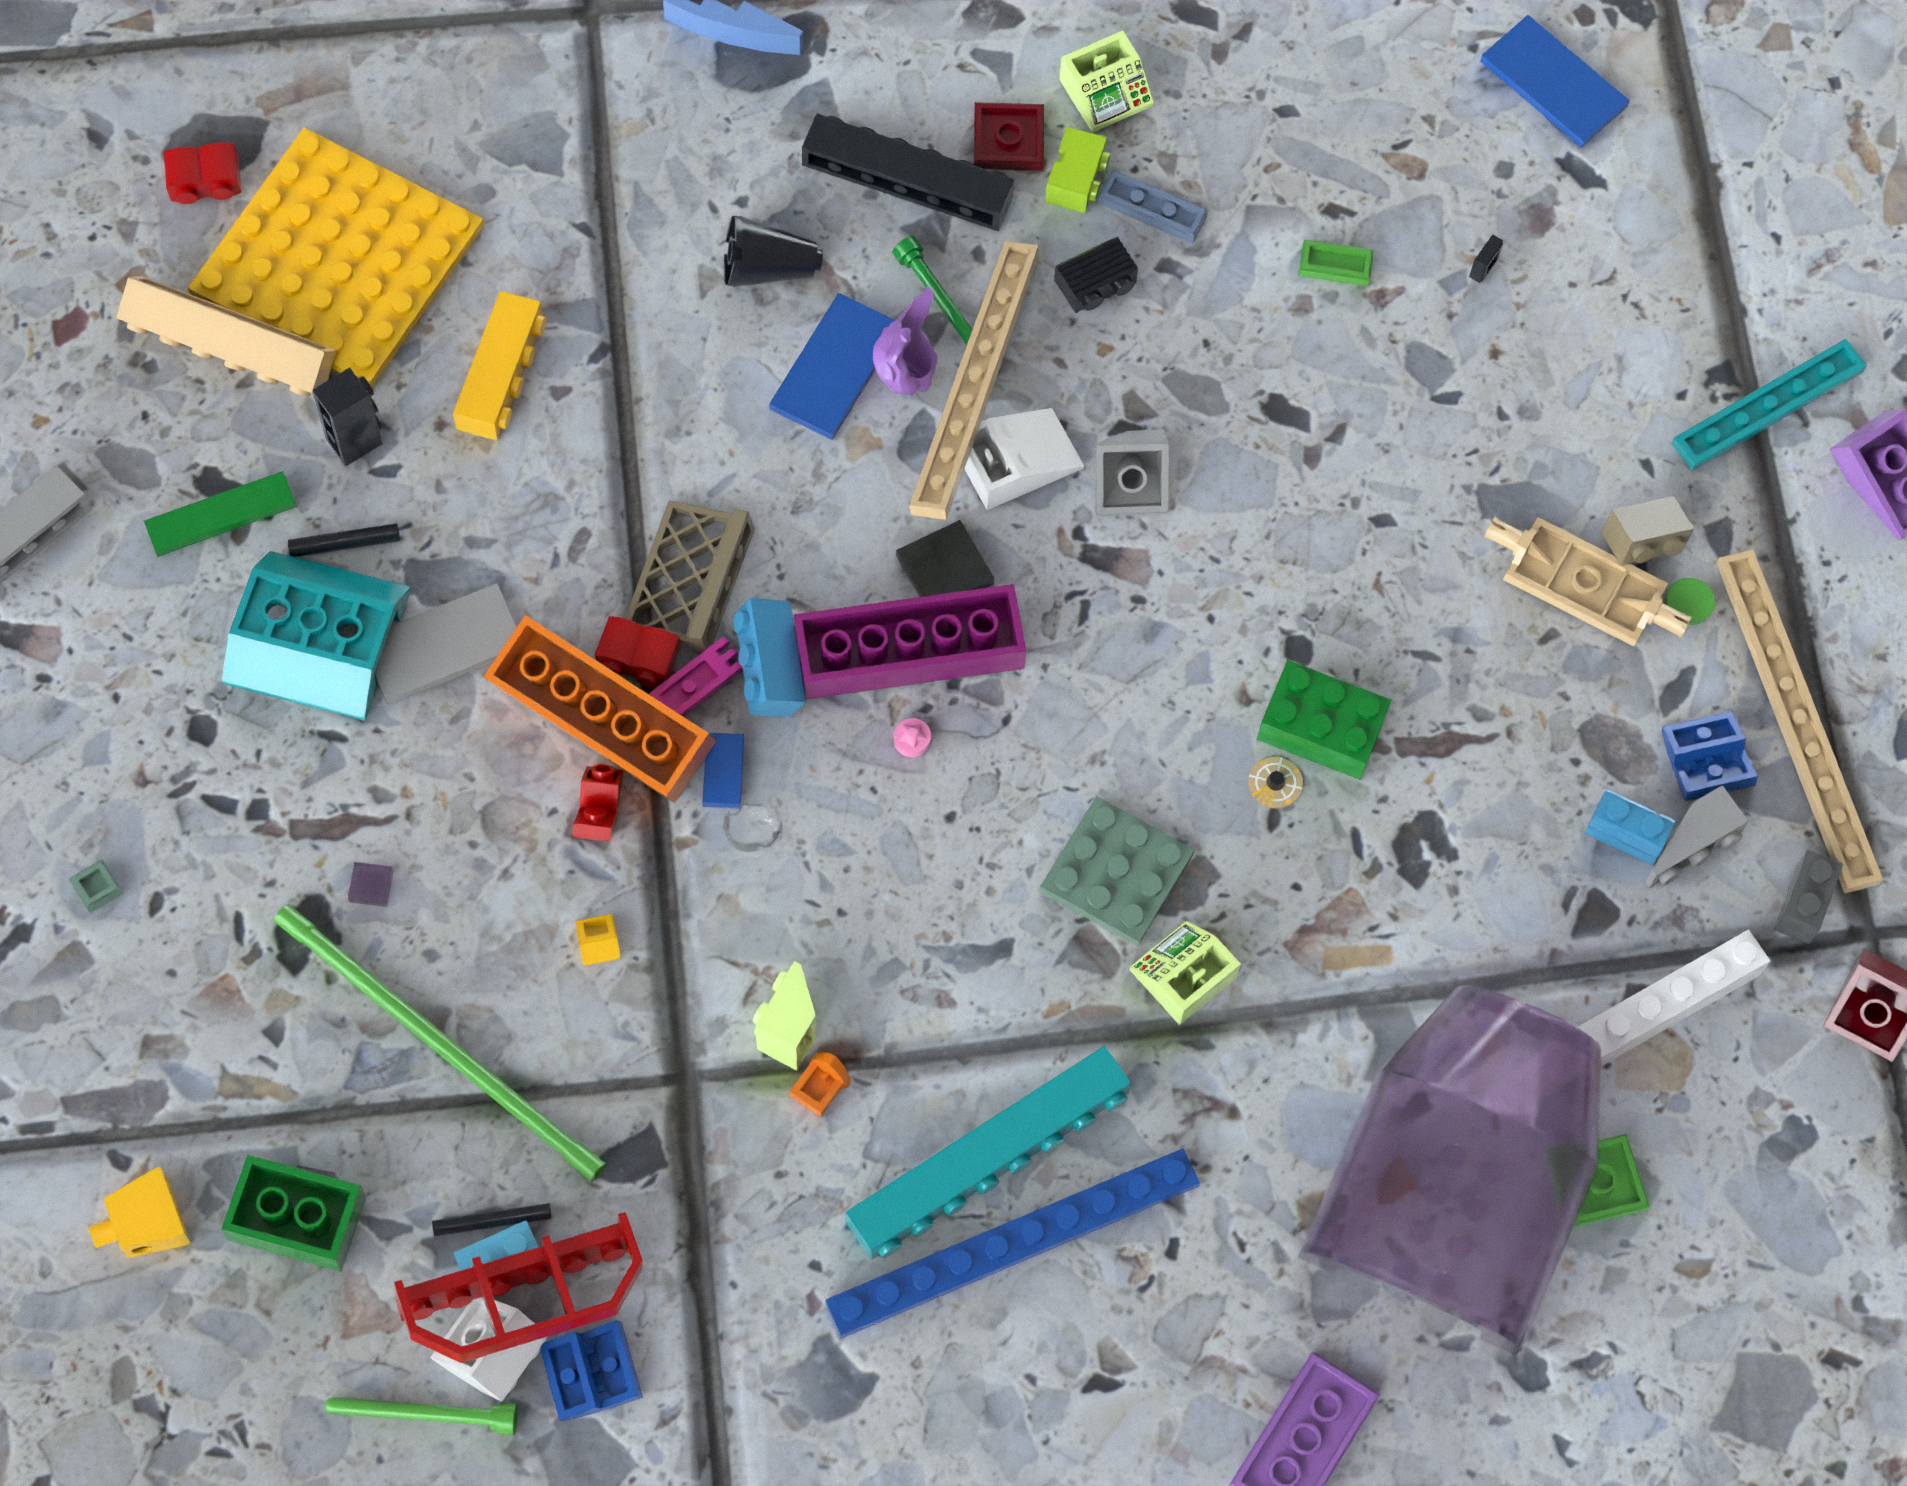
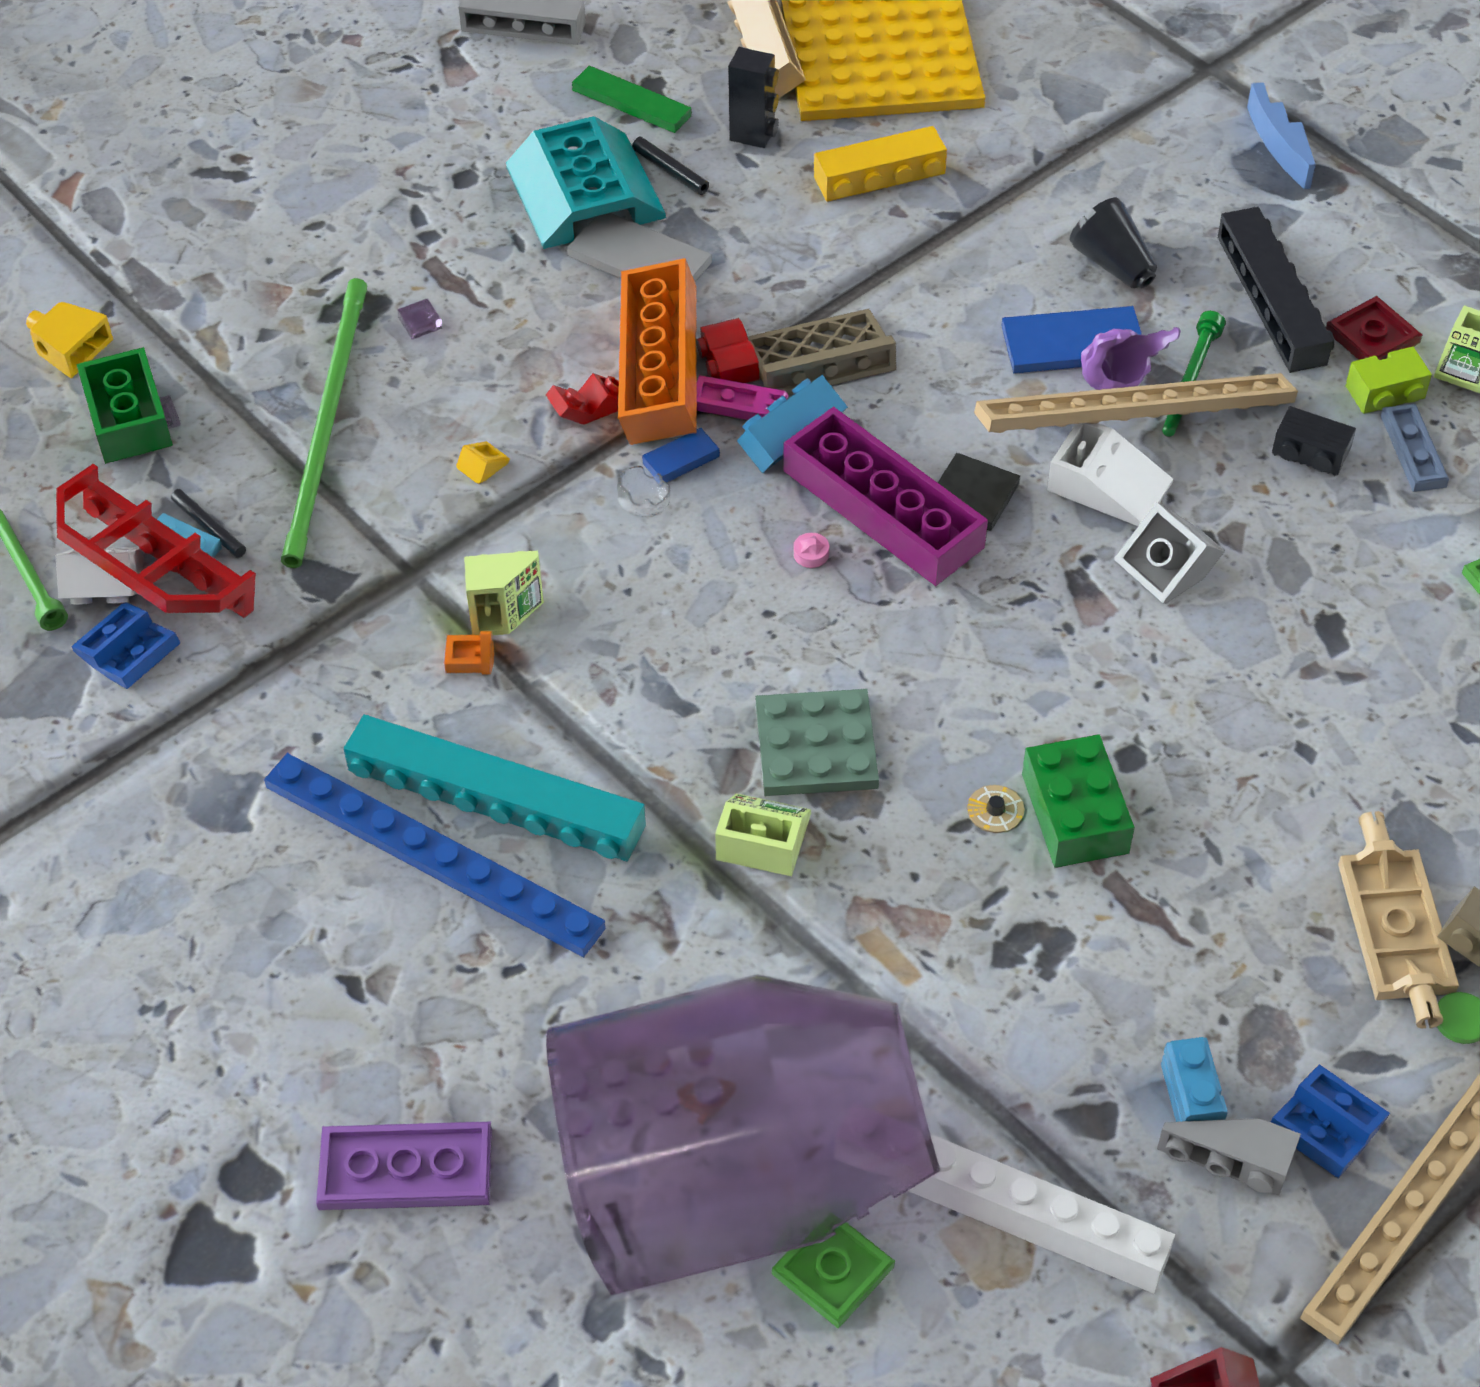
camera: 60 degrees right, 15 degrees down
(95, 886) = (301, 188): sand green tile -> none
(1808, 896) = (1263, 1279): dark grey brick -> none

